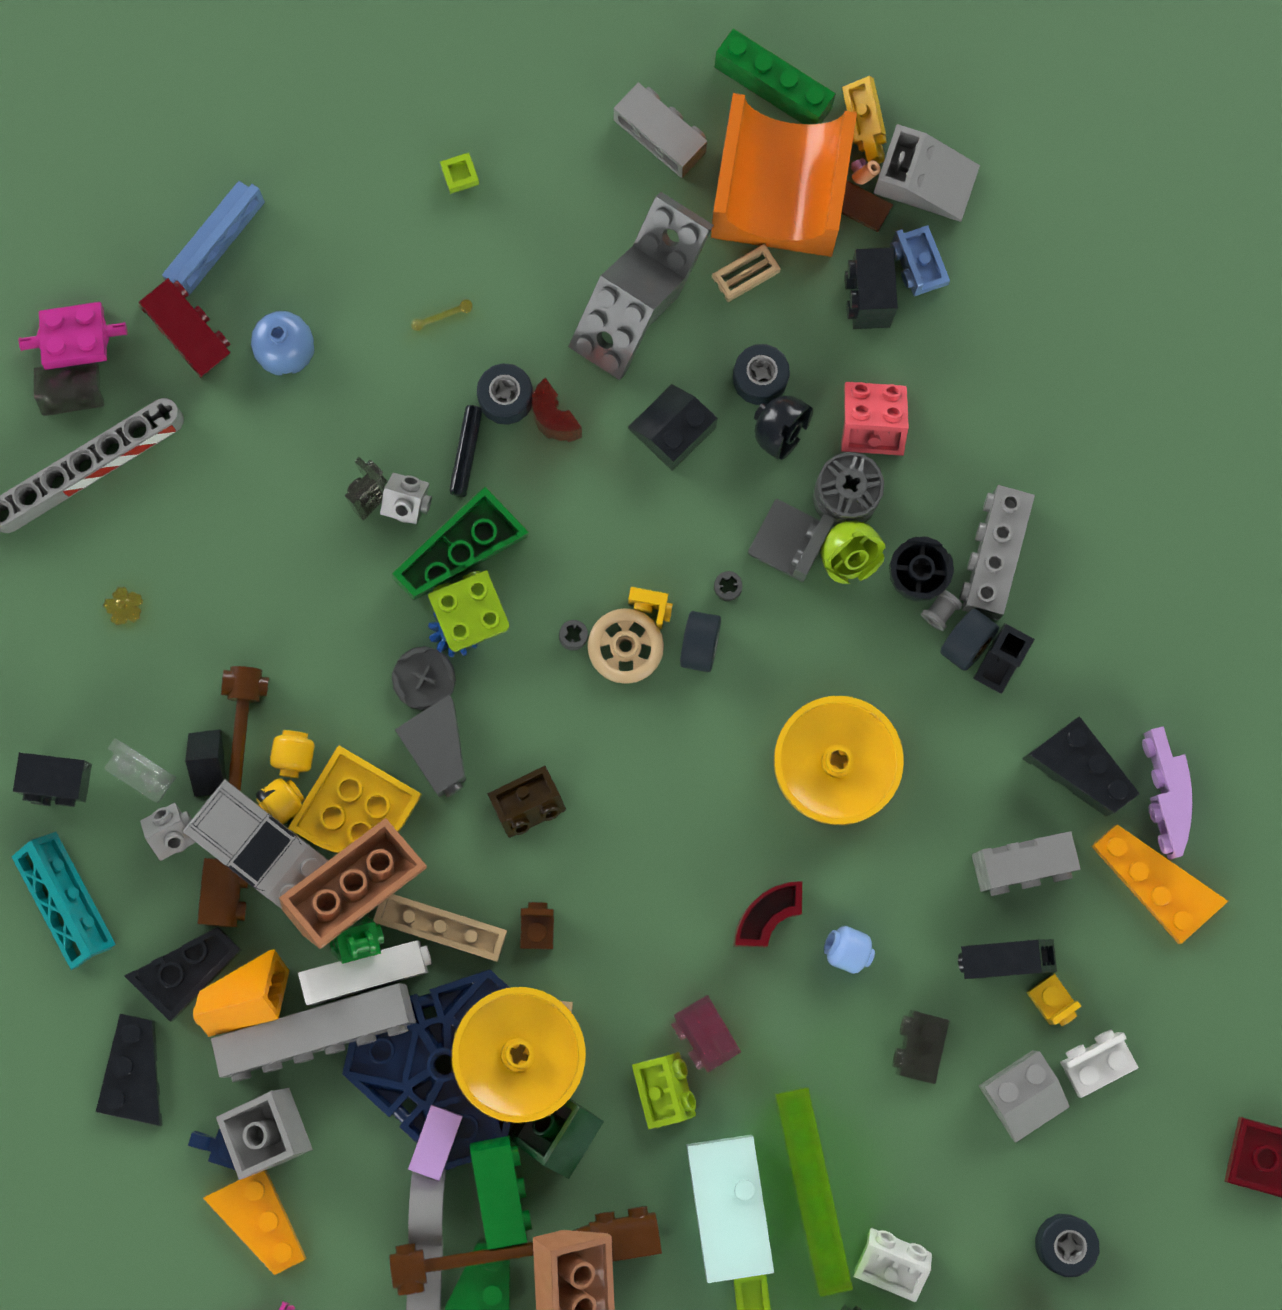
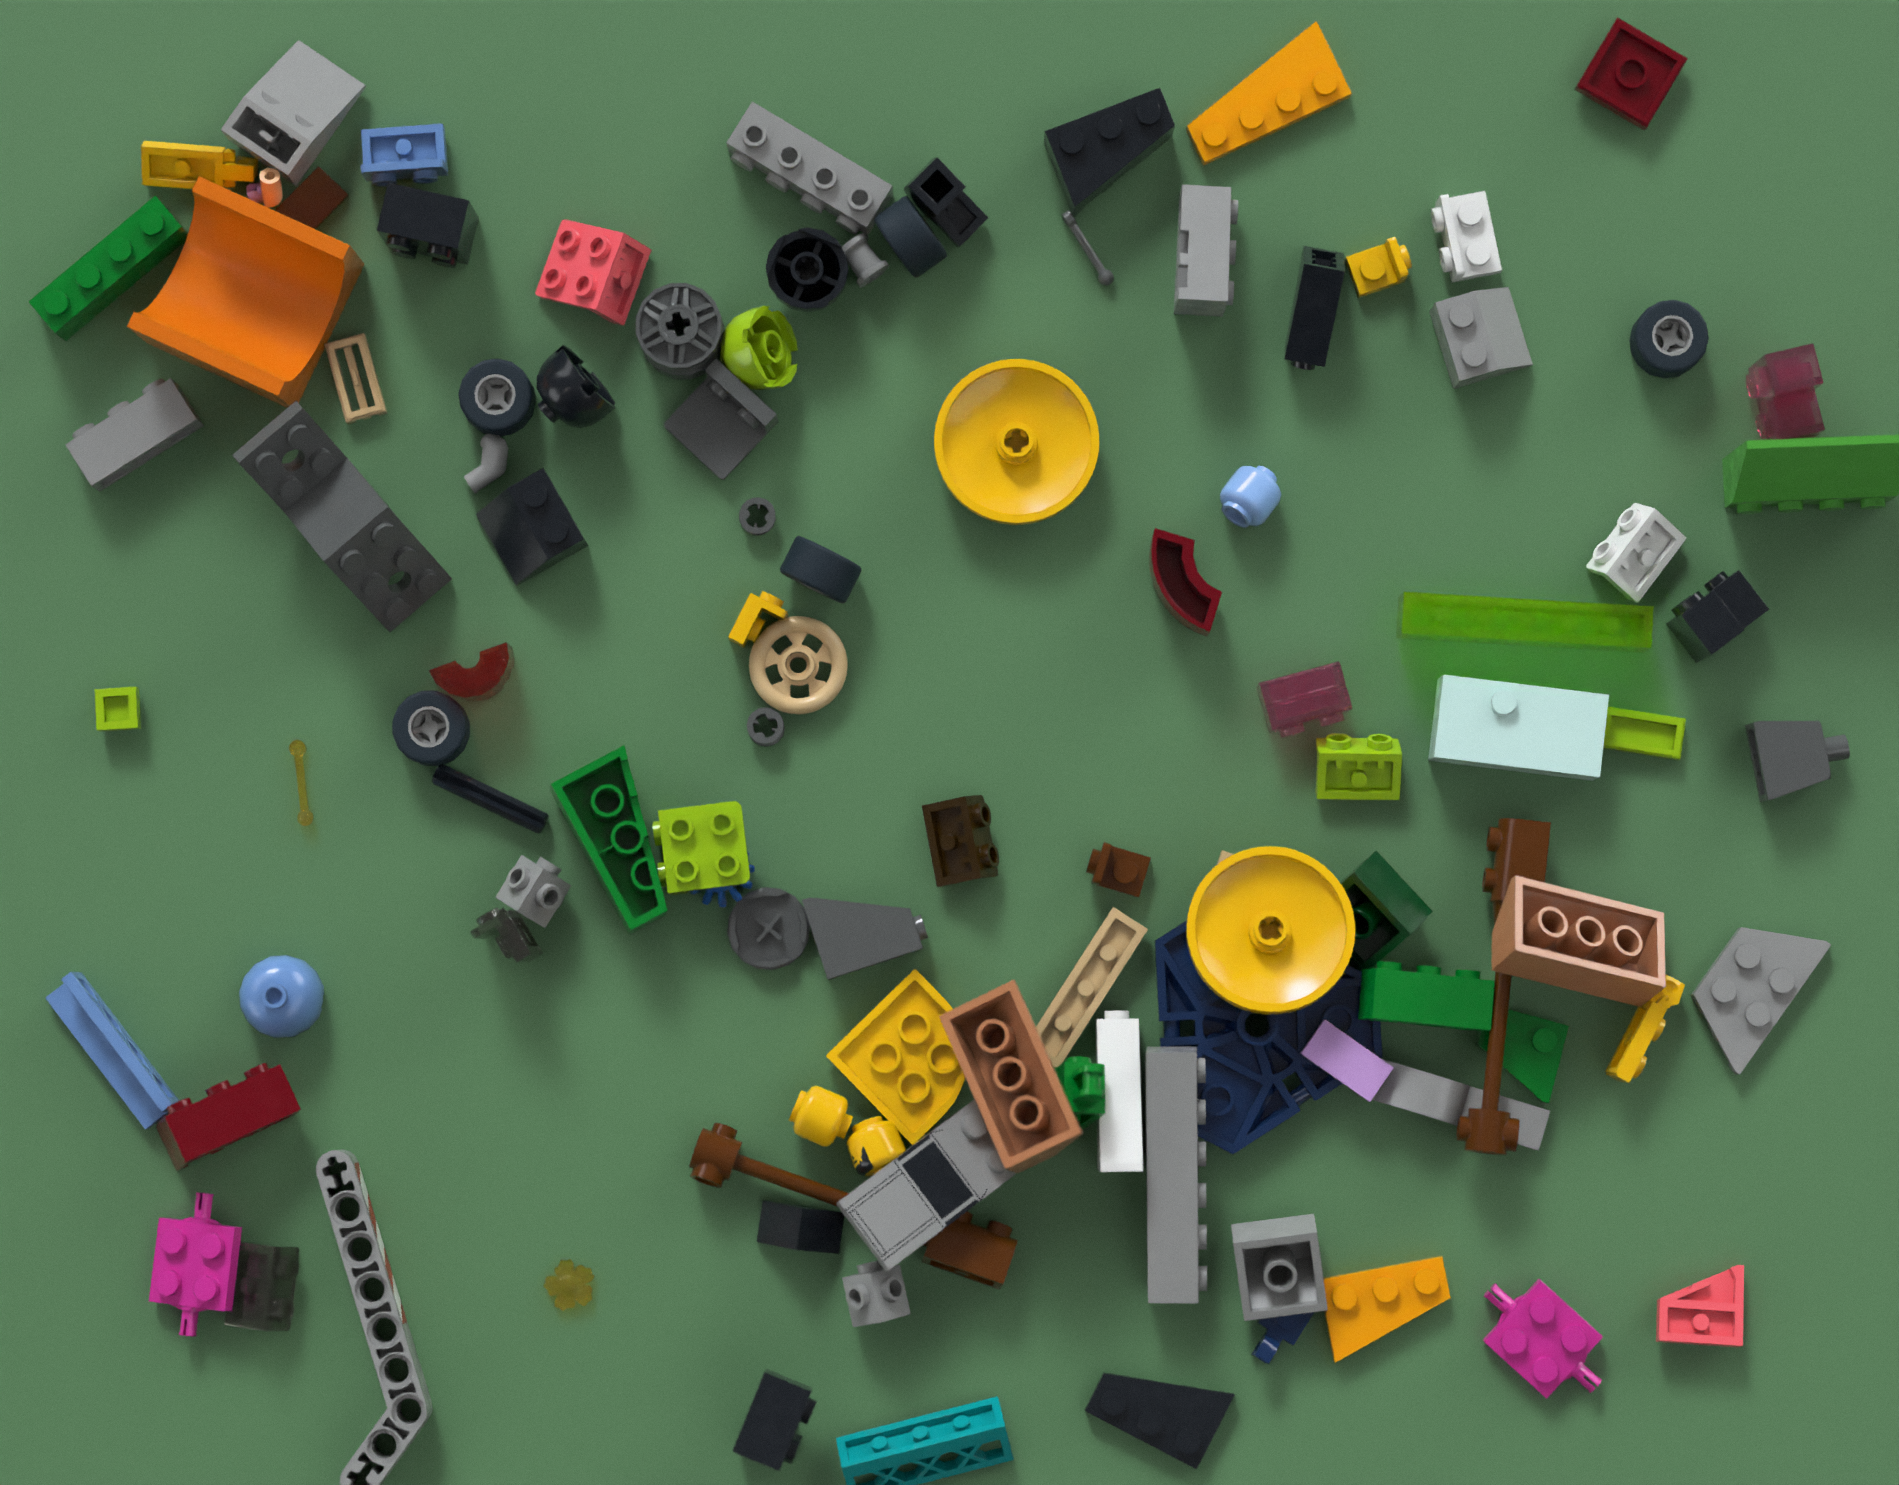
camera: 70 degrees left, 5 degrees up
(138, 771) = (790, 1315): clear bracket -> none
(178, 976) = (1055, 1317): black wing -> none
(244, 996) = (1107, 1251): light orange slope -> none
(712, 385) = (492, 462): none -> light grey arm
(921, 1046) = (1389, 443): clear smoke bracket -> none
(984, 794) = (1105, 276): none -> dark grey hinge
(1174, 805) = (1184, 50): lavender slope -> none

